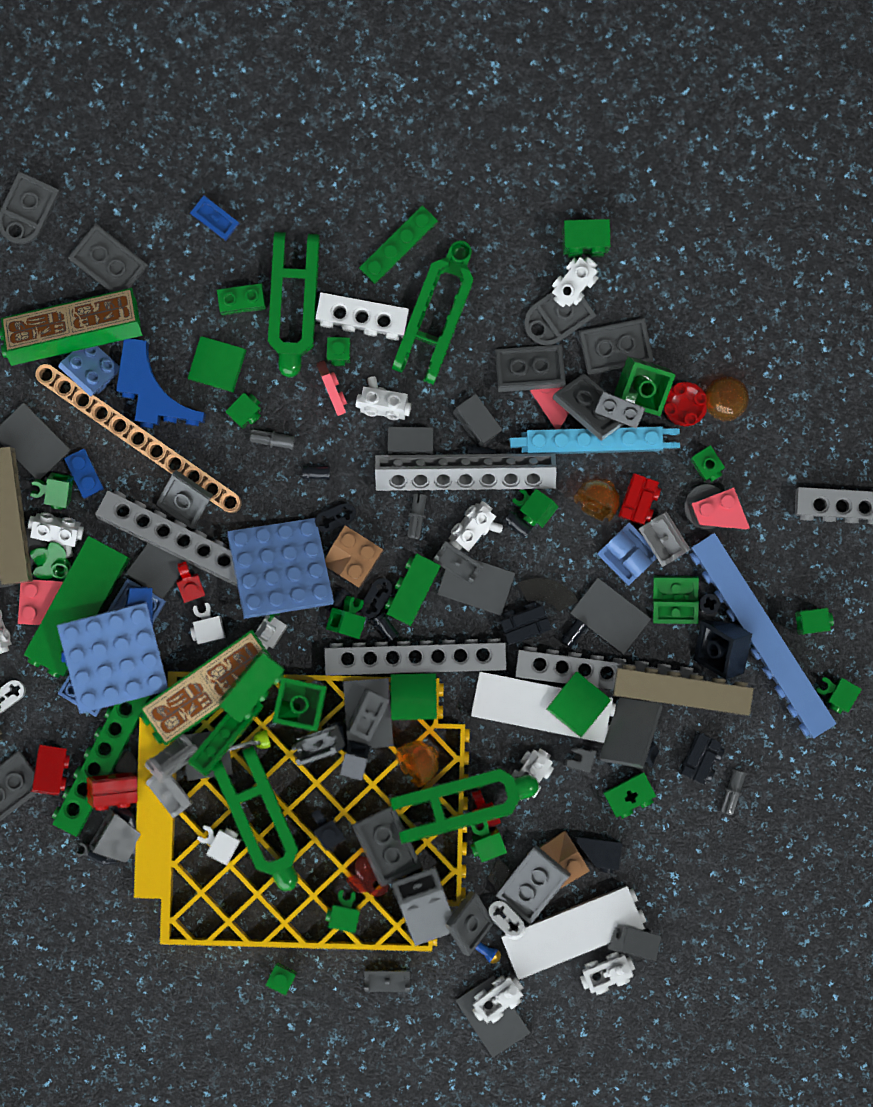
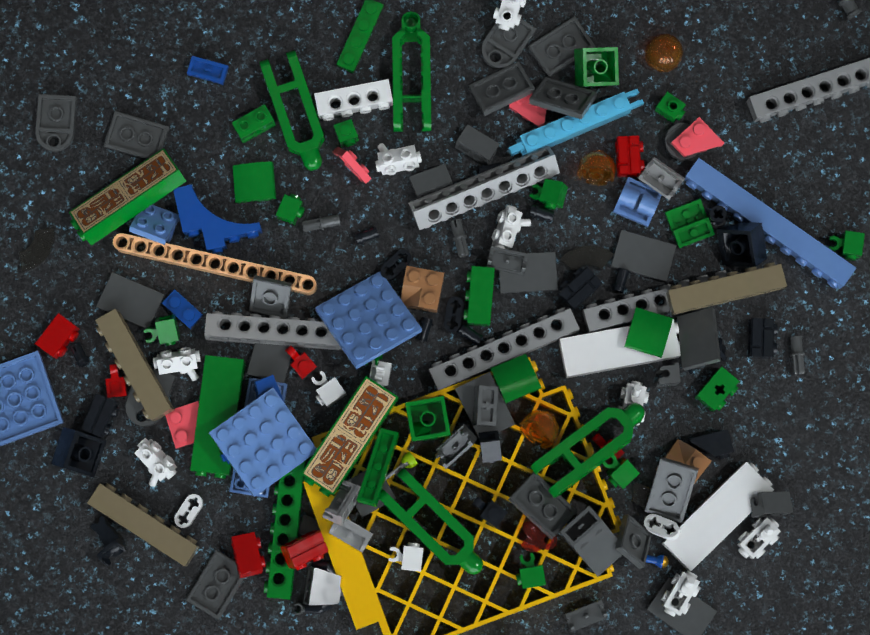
camera: 25 degrees left, 5 degrees down
(48, 560) = (180, 388): green plate -> none
(251, 686) = (384, 419): green brick -> none
(346, 620) = (437, 341): green brick -> none
(619, 409) = (586, 89): hinge -> none
(685, 404) = (634, 69): red dish -> none
(813, 621) = (804, 195): green brick -> none

